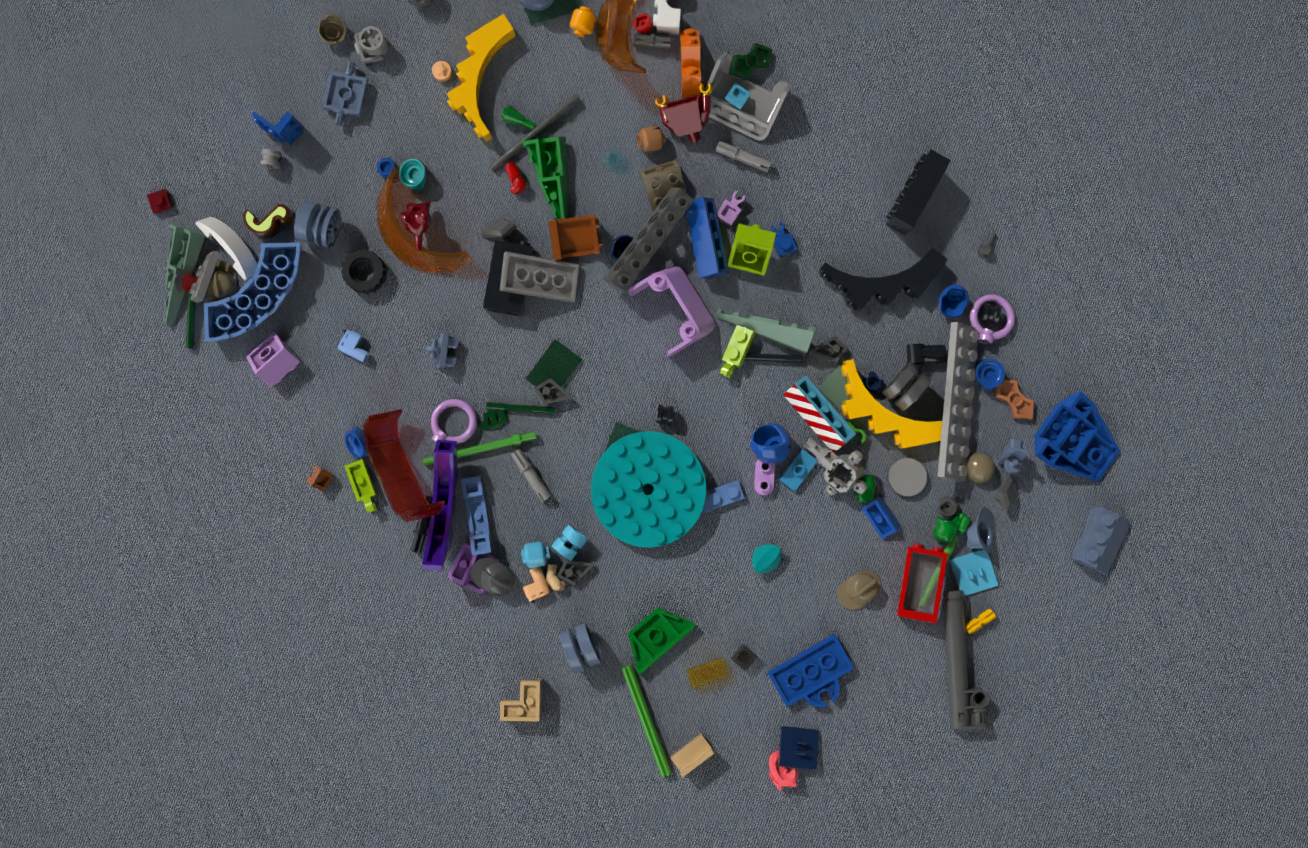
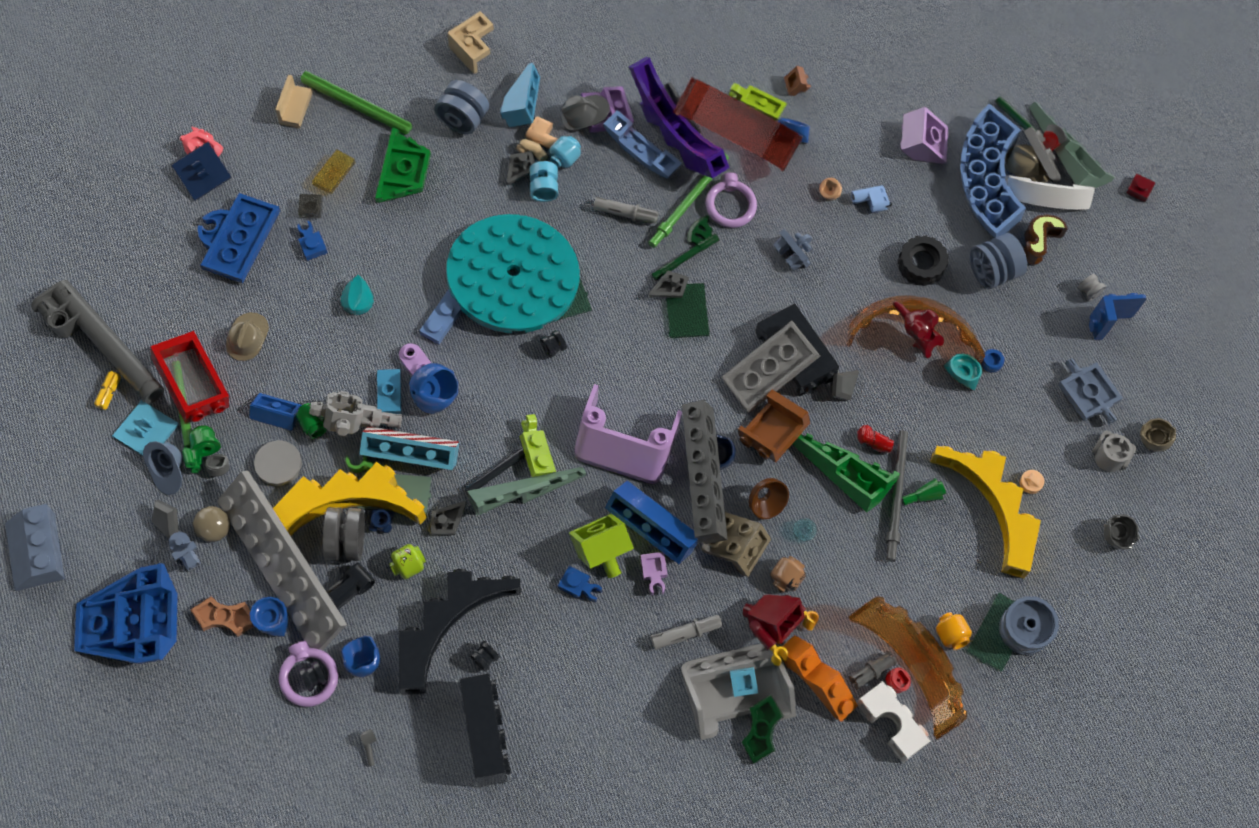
camera: 135 degrees right, 20 degrees down
(375, 375) = (830, 188): none -> light nougat tile
(529, 623) = (521, 98): none -> dark azure slope
(620, 195) = (773, 502): none -> reddish brown piece
(764, 627) = (311, 243): none -> blue plate
(878, 241) = (484, 656): none -> black wheel
(878, 340) = (407, 561): none -> lime head

